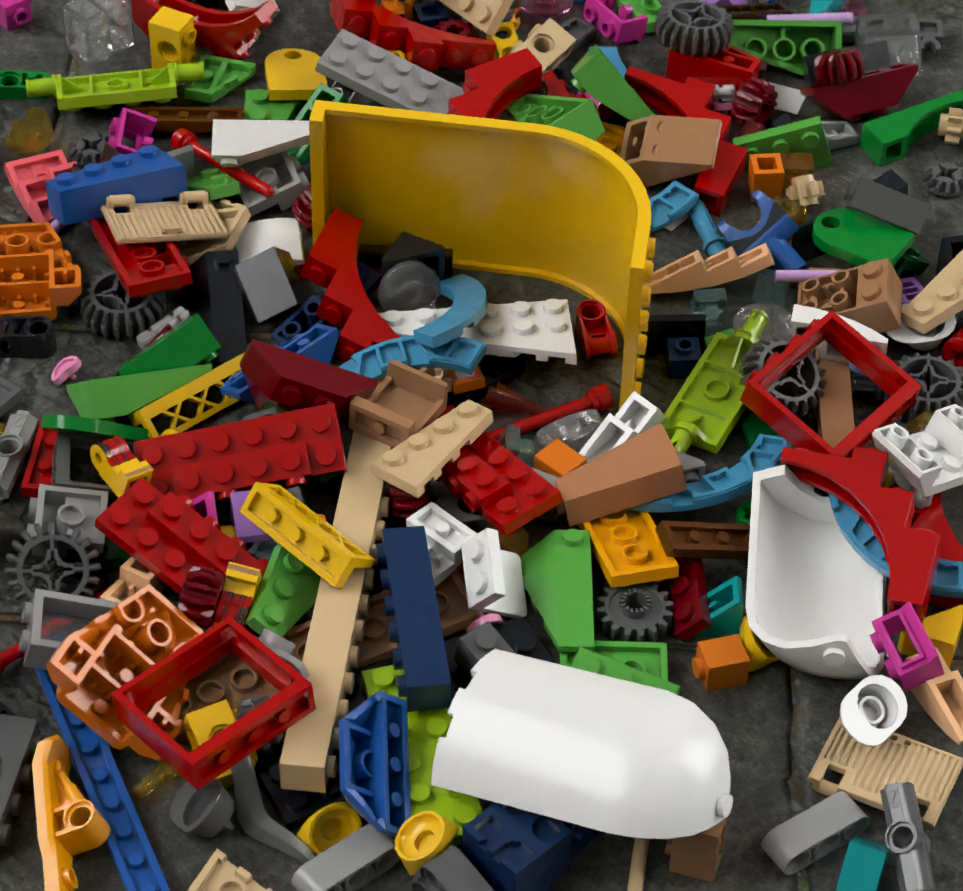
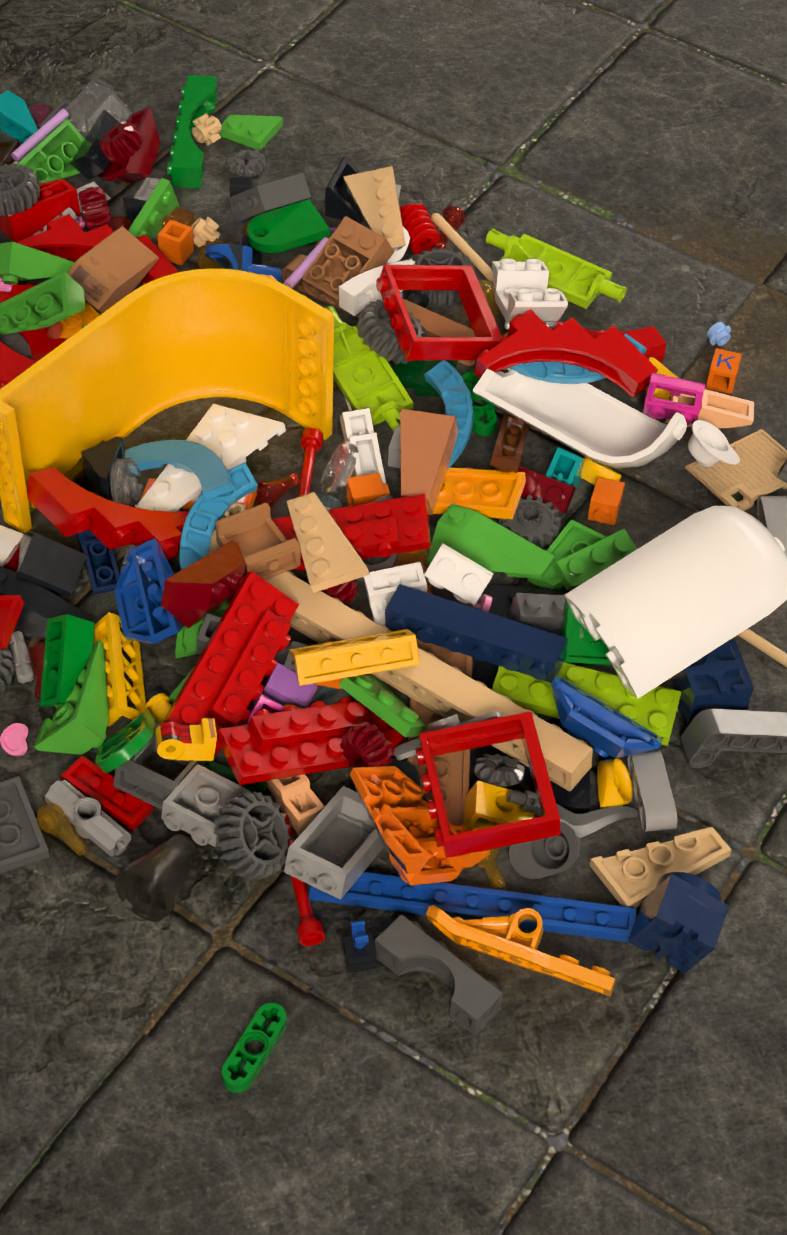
camera: 60 degrees left, 5 degrees up
(238, 593) = (374, 714): leg -> none
(423, 838) = (680, 728): yellow piece -> none
(594, 330) = (247, 402): red piece -> none

